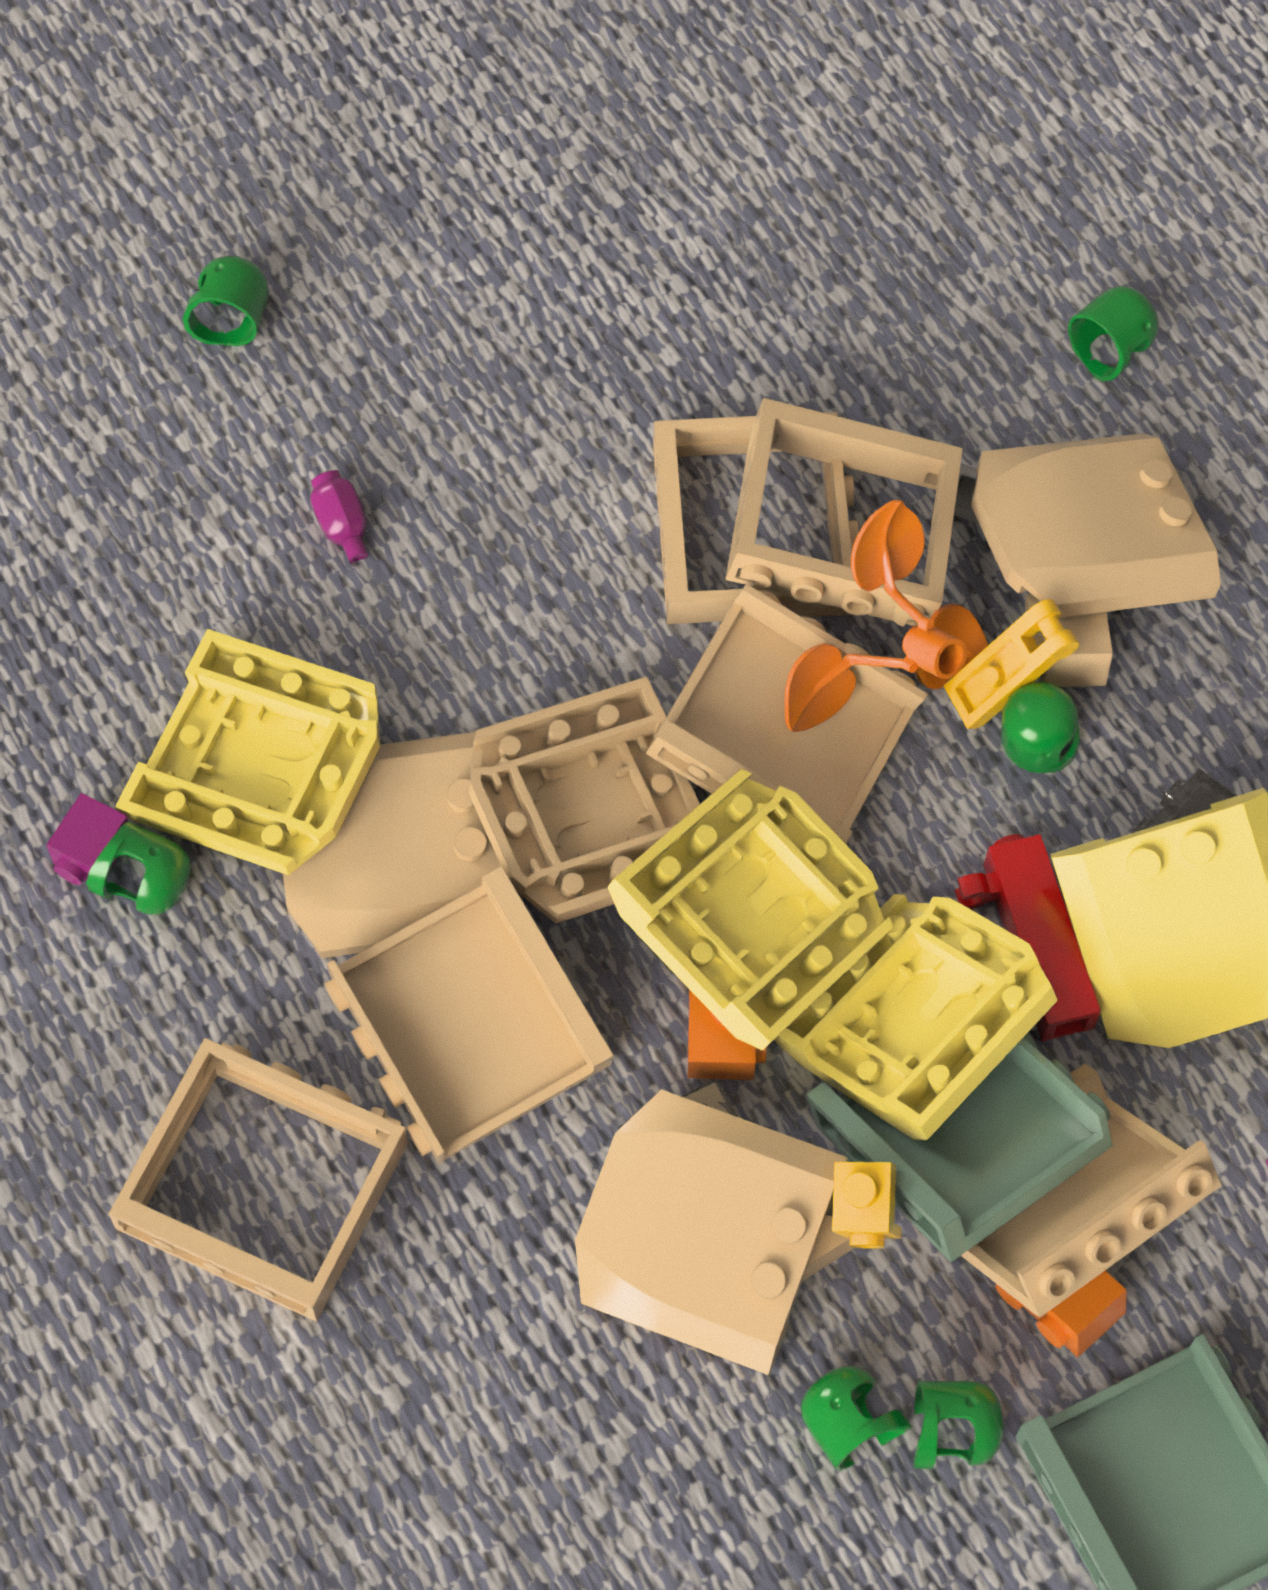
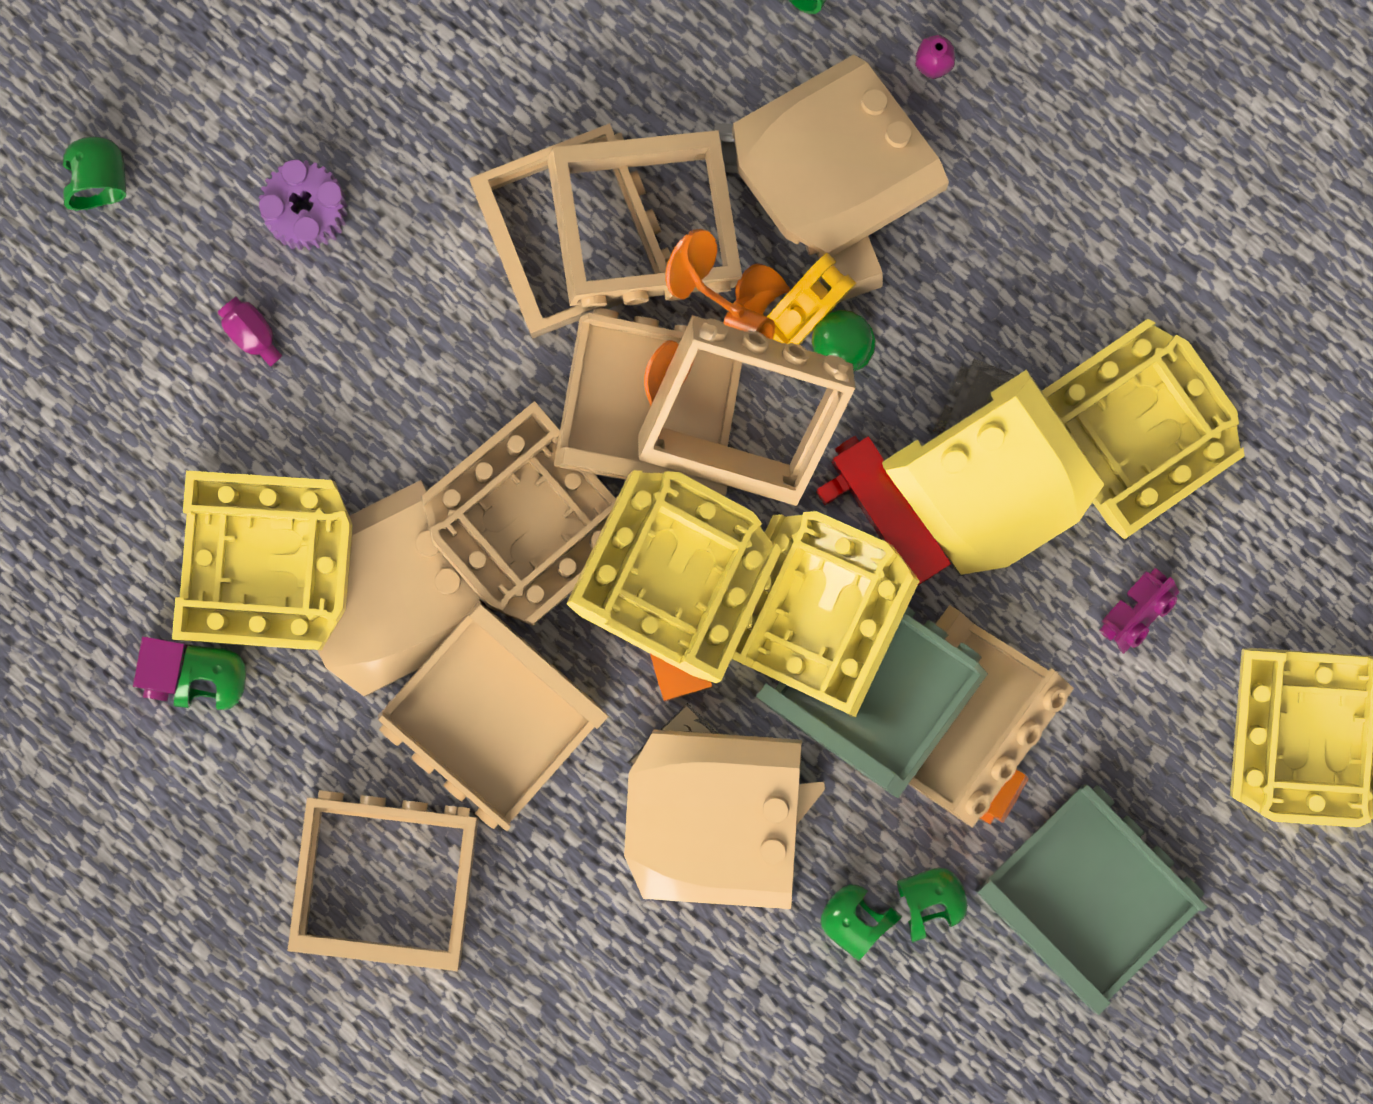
camera: 20 degrees left, 20 degrees up
(452, 398) = (295, 183): none -> medium lavender brick
(855, 814) = (728, 464): none -> tan window
(865, 1203) = (825, 778): yellow bracket -> none
(1242, 455) = (935, 56): none -> magenta plant

